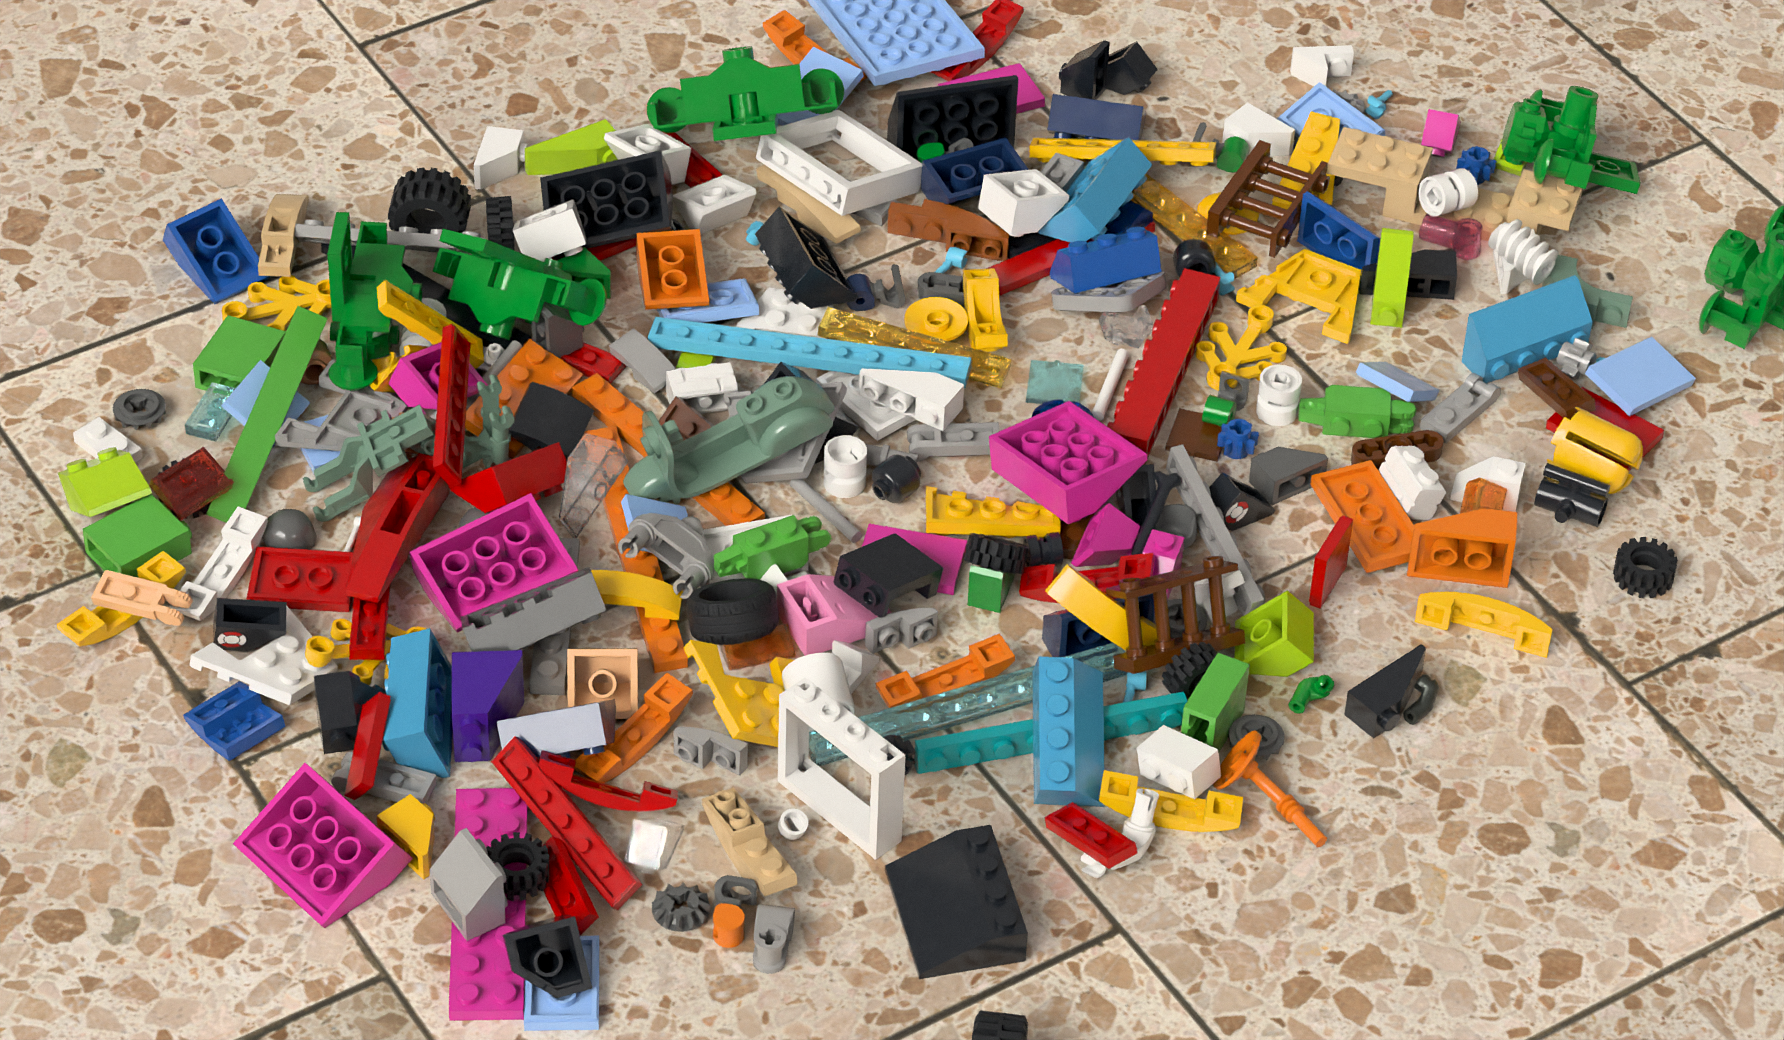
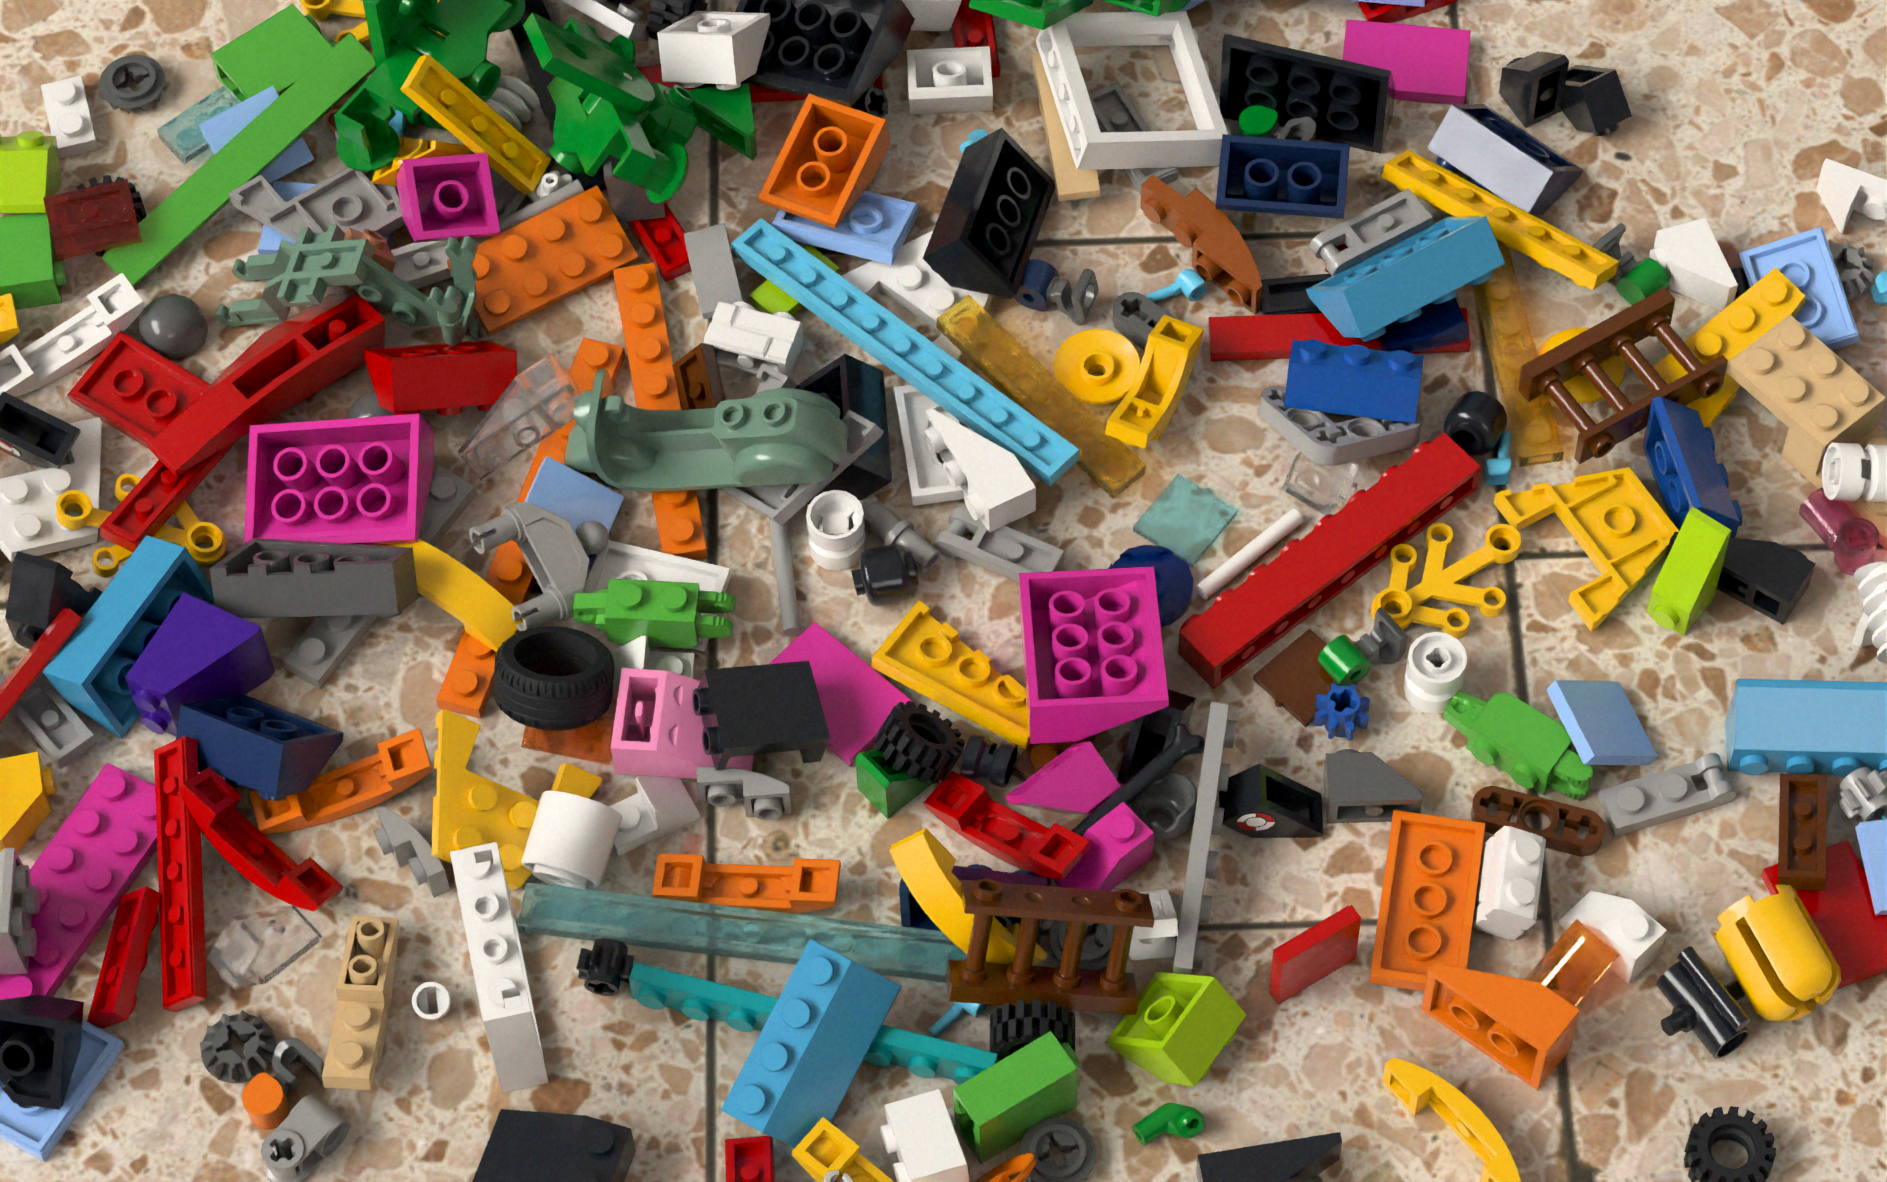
camera: 35 degrees right, 15 degrees up
(451, 406) = (416, 250): red tile -> none
(522, 851) = (69, 886): black tyre -> none
(549, 418) = (546, 308): black slope -> none
(604, 676) = (361, 694): light nougat slope -> none
(1020, 200) = (1301, 246): white slope -> none

